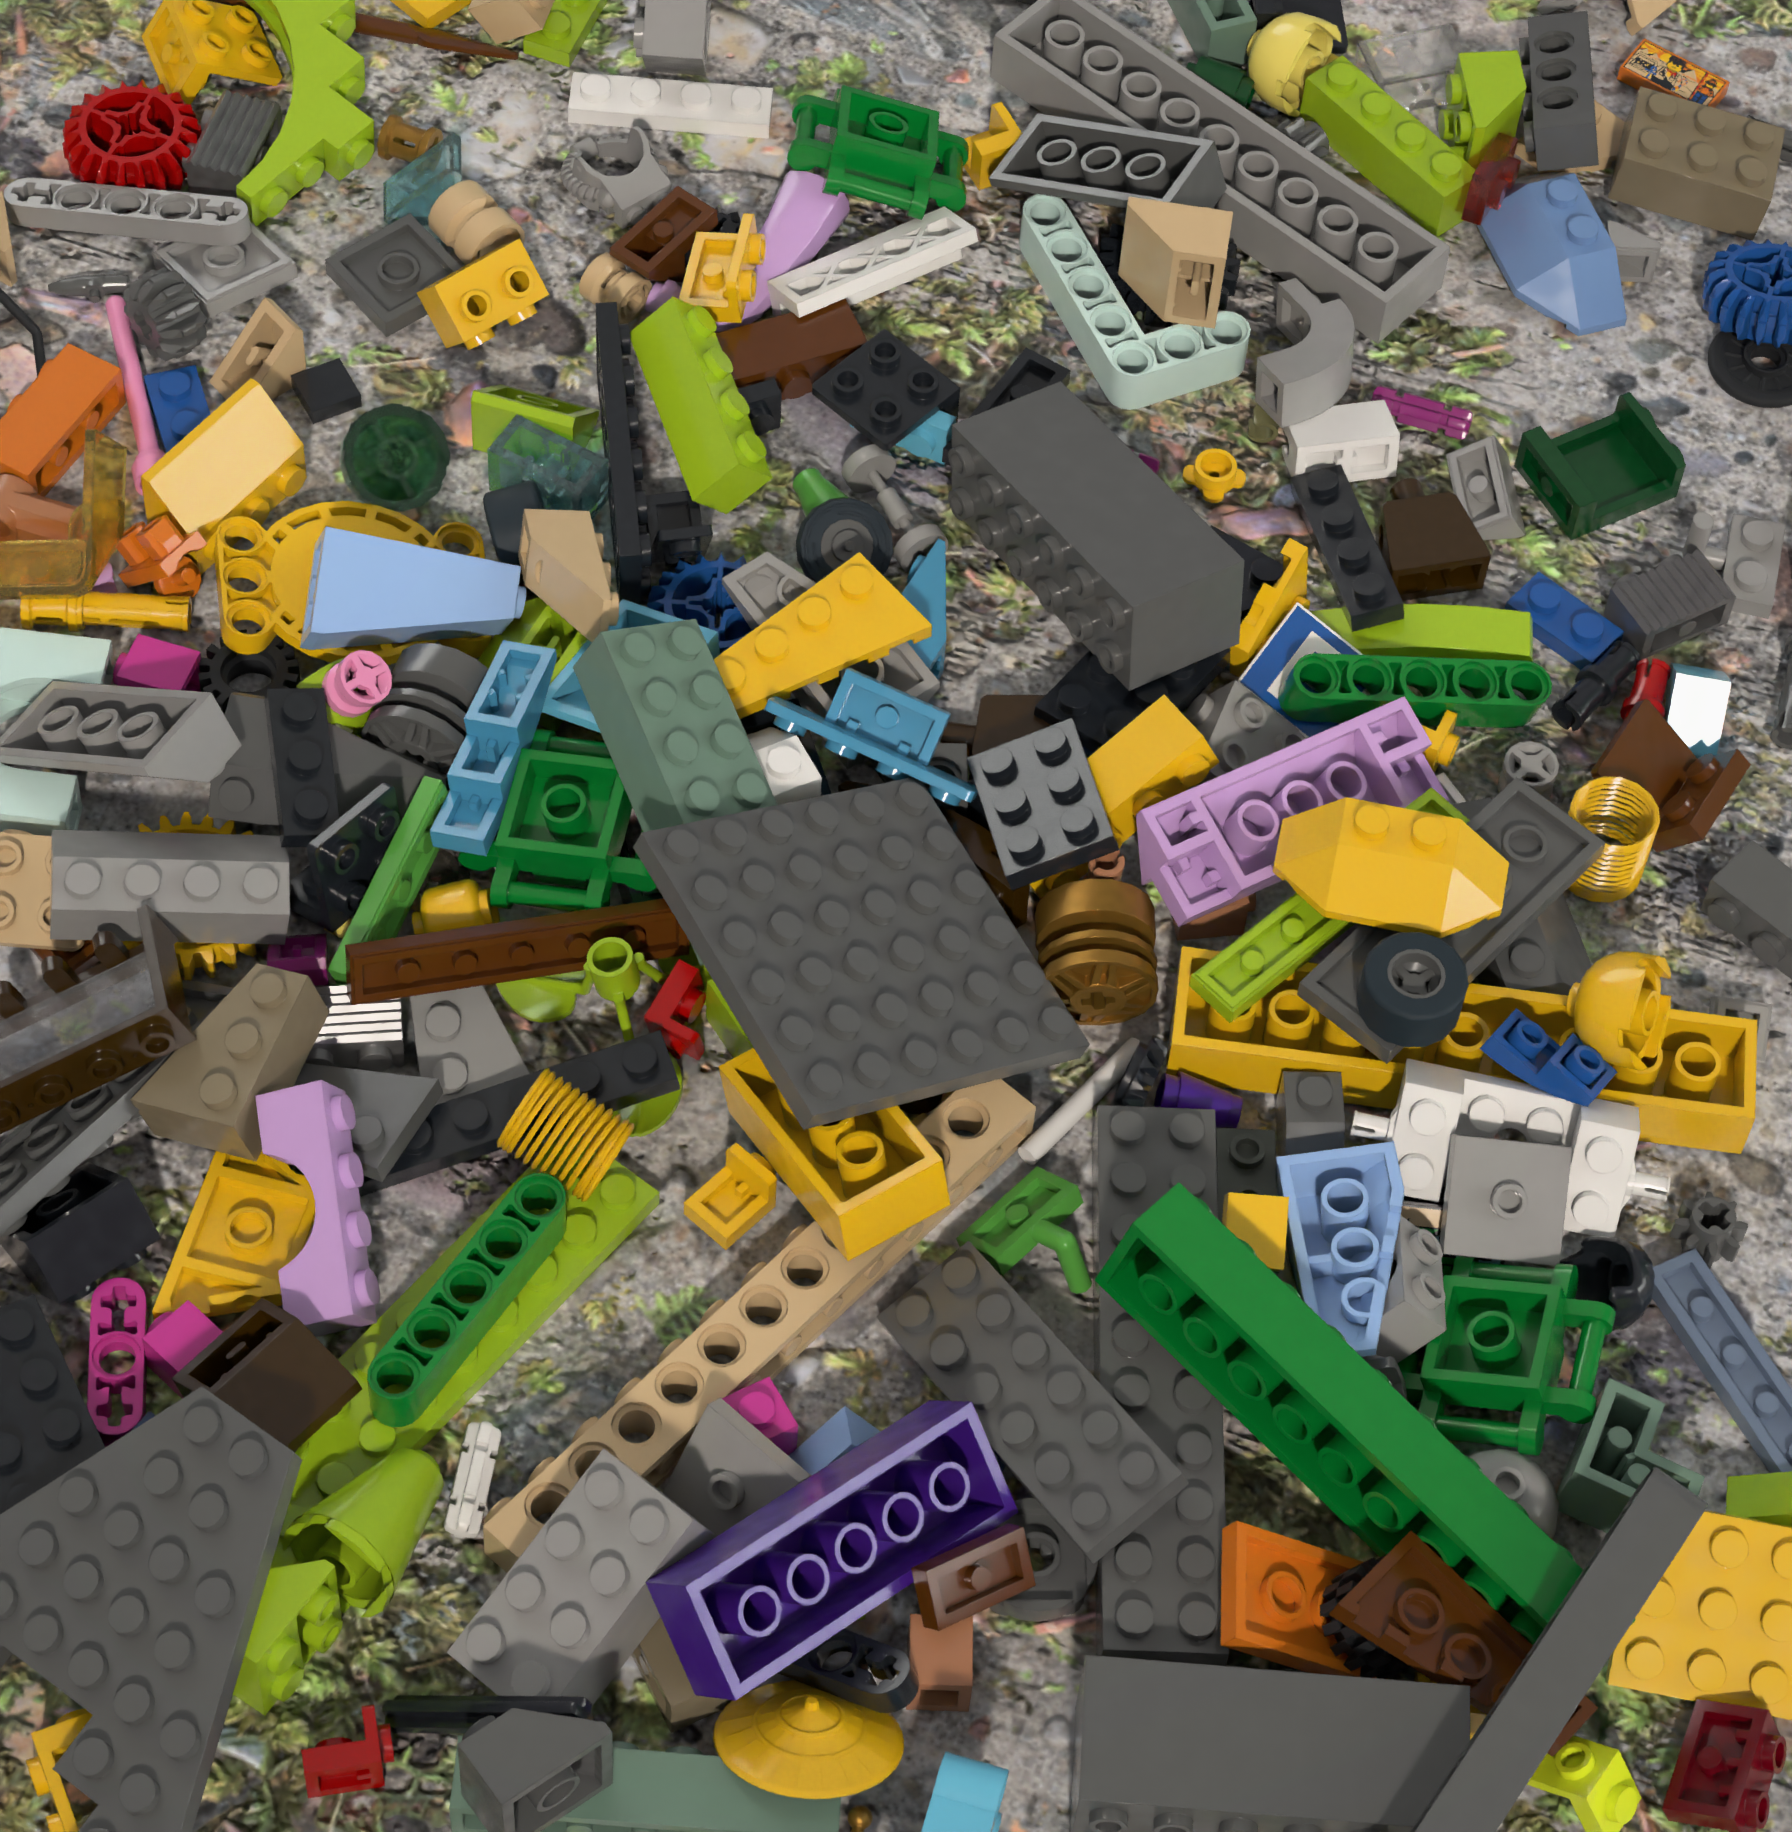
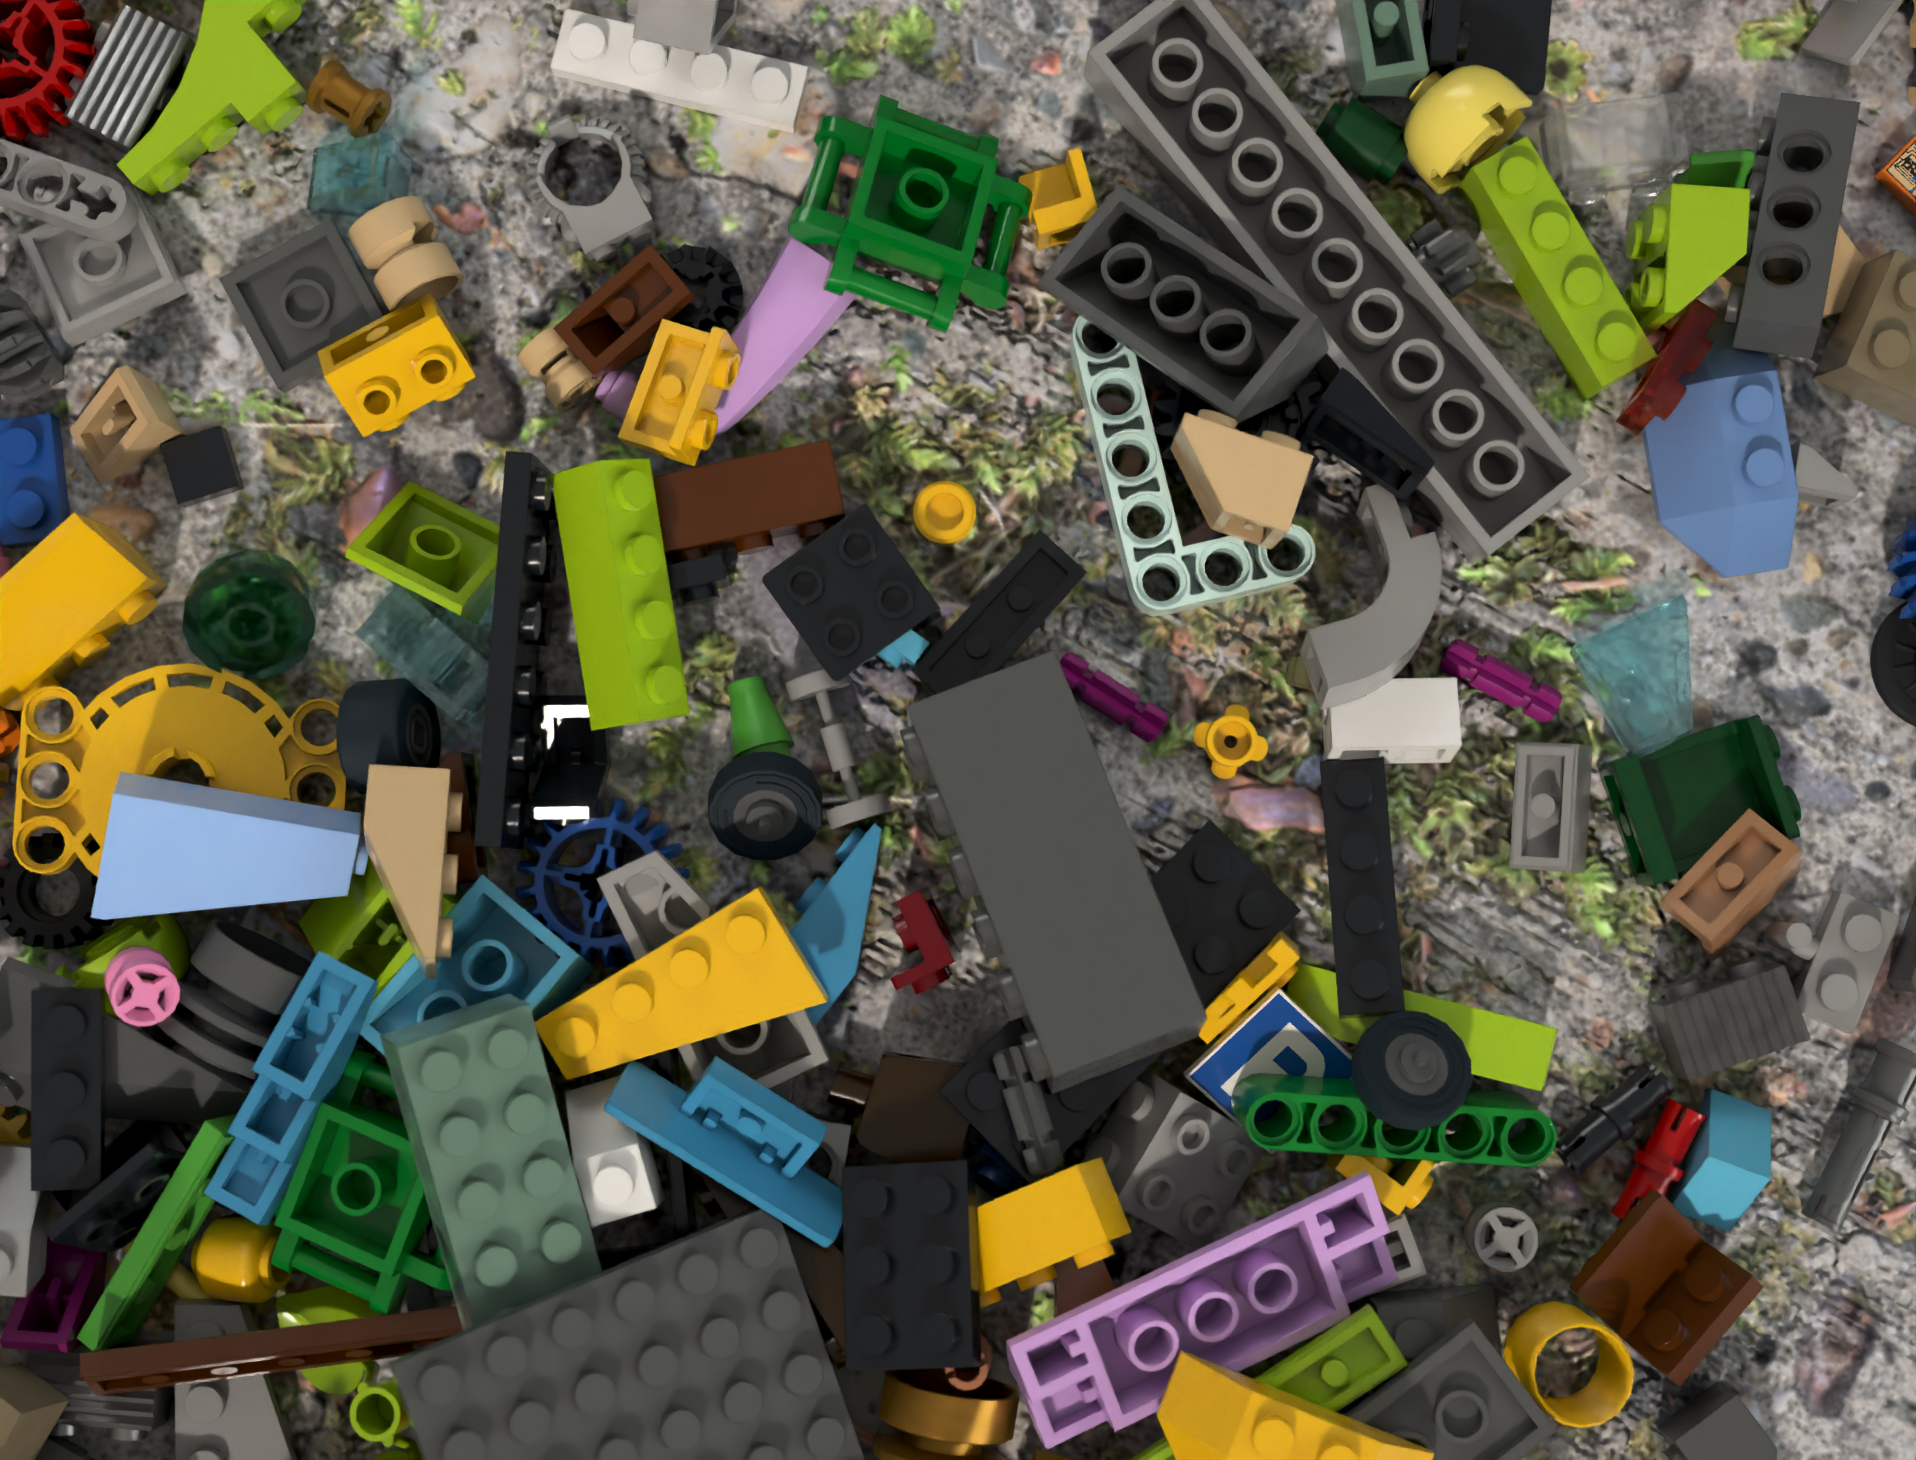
camera: 15 degrees right, 30 degrees up
(873, 264) = (872, 388): white fence -> none
(947, 354) = (944, 513): none -> yellow tile
(998, 610) = (924, 929): none -> dark red bracket
(1108, 688) = (1028, 1111): none -> dark grey axle
(1251, 251) = (1367, 436): none -> black slope
(1418, 633) = (1411, 1070): none -> black wheel
(1430, 543) = (1459, 887): dark brown torso -> none
(1530, 392) = (1642, 677): none -> clear light blue wing
(1565, 621) = (1597, 1013): blue plate -> none
(1647, 512) = (1733, 882): none -> medium nougat panel

